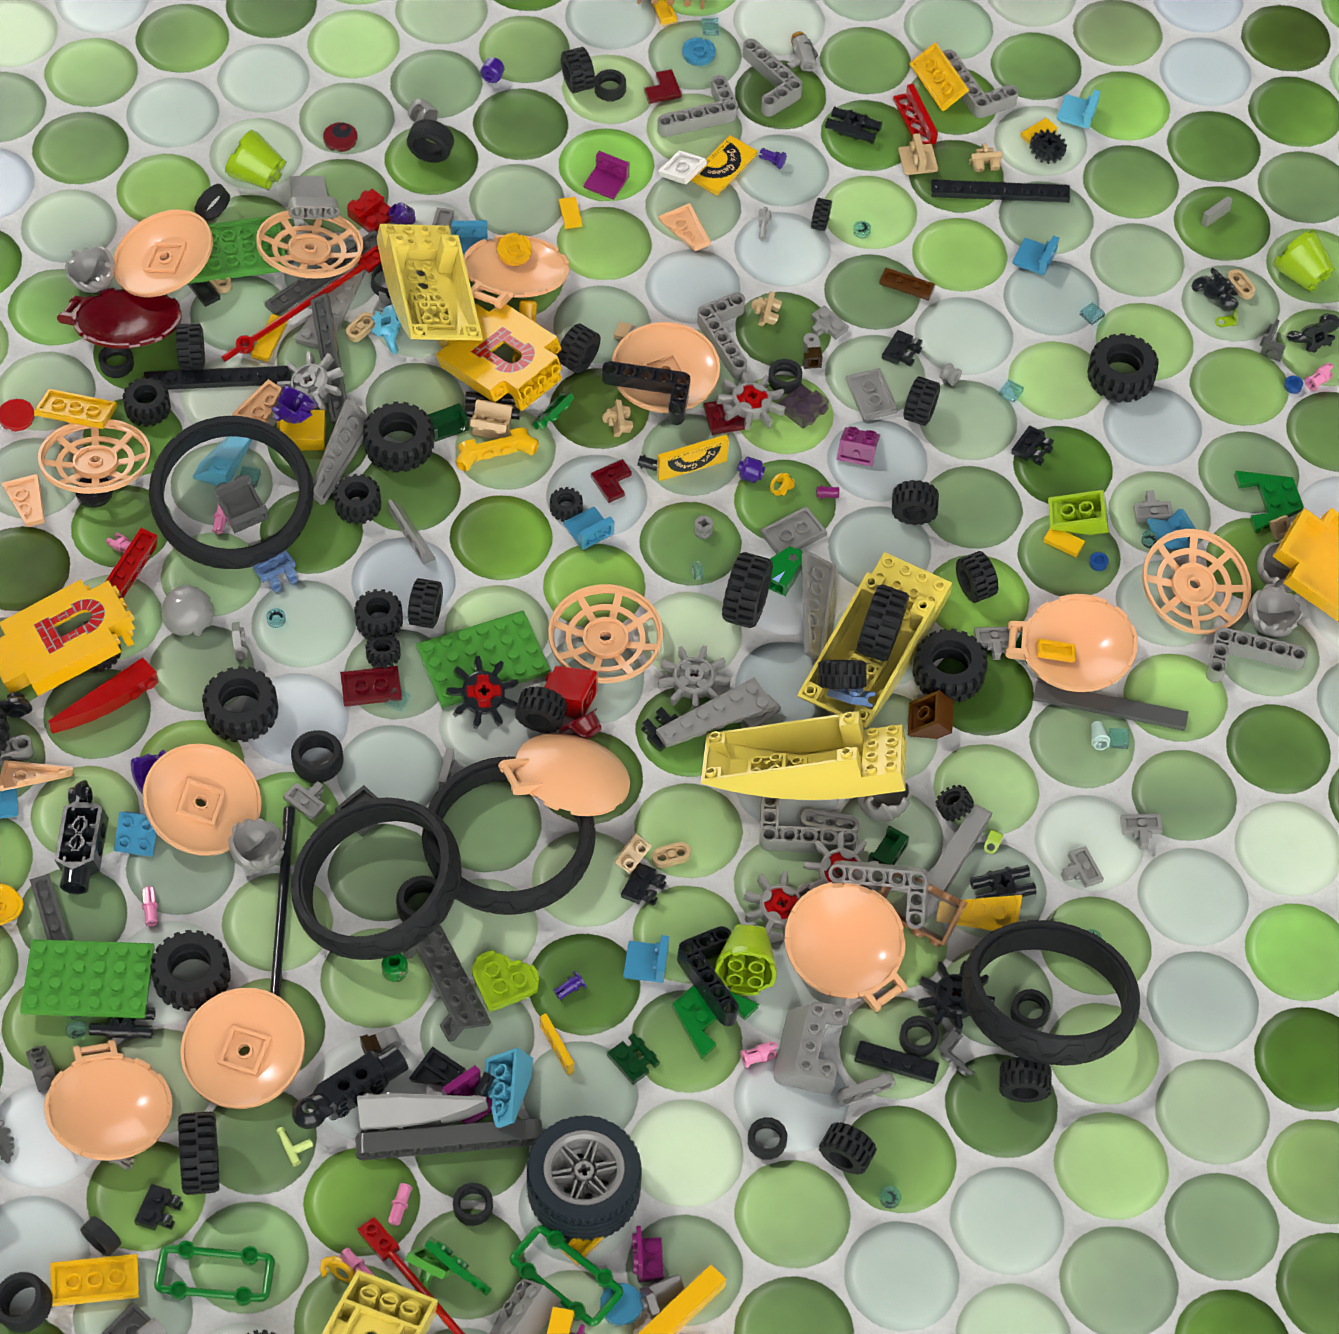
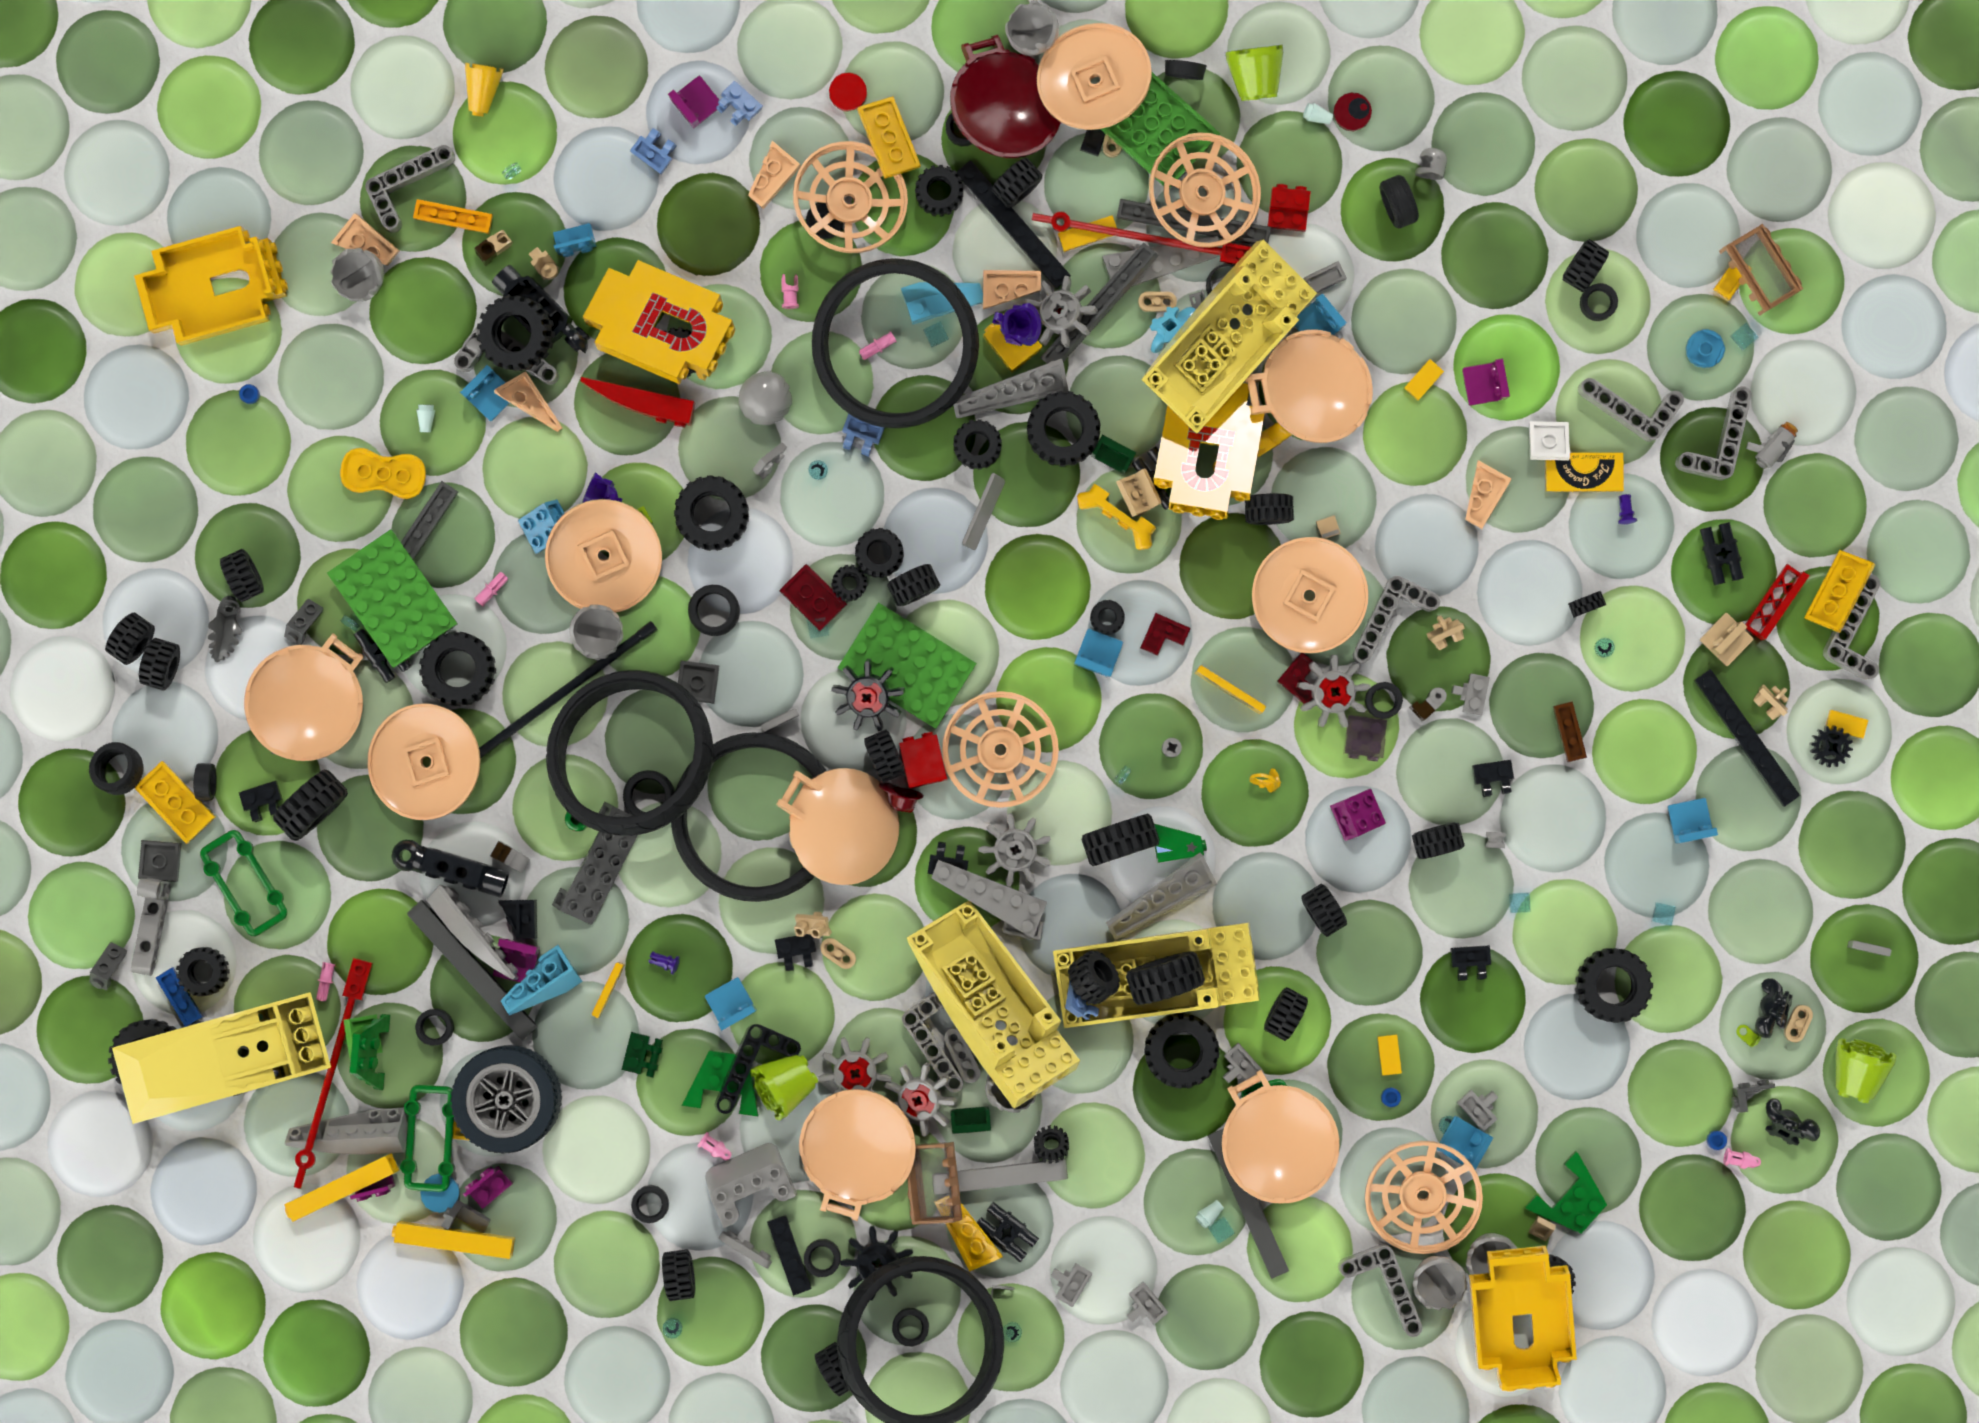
camera: 55 degrees right, 30 degrees up
(80, 839) = (502, 490): black brick -> none
(133, 561) = (773, 315): red fence -> none
(241, 503) = (880, 368): dark grey panel -> none
(293, 1150) = (379, 860): yellowish green piece -> none
(306, 800) = (671, 632): light grey hinge -> none
(310, 199) = (1259, 146): light grey piece -> none
(321, 155) = (1317, 114): none -> light aqua cone
(332, 1264) = (311, 962): yellow piece -> none
(399, 1204) = (395, 973): bright pink axle -> none
(402, 214) = (1302, 240): dark purple head -> none
(484, 1084) = (529, 964): black pin -> none
(492, 70) = (1531, 185): dark purple head -> none
(502, 980) = (631, 907): lime plate -> none
(514, 249) = (1339, 367): yellow tile -> none
(552, 412) = (1194, 532): green plate -> none
(615, 418) = (1226, 591): tan hips -> none
(645, 462) = (1202, 653): black pin -> none
(658, 380) = (1279, 602): black beam -> none
(666, 90) = (1635, 355): dark red tile -> none
(751, 469) = (1260, 744): dark purple head -> none
(764, 216) = (1551, 553): light grey plate -> none
(794, 530) = (1225, 824): light grey tile -> none
(827, 492) = (1288, 824): magenta pin -> none
(871, 394) = (1423, 785): light grey tile -> none
(889, 881) = (927, 1145): light grey beam -> none
(931, 716) = (1123, 1066): reddish brown slope -> none
(949, 1042) = (822, 1297): dark grey bracket -> none
(995, 838) = (1046, 1195): lime piece -> none
(1056, 650) = (1262, 1127): yellow tile -> none
(1079, 110) = (1900, 742): medium azure bracket -> none
(1079, 513) = (1424, 1050): lime slope -> none

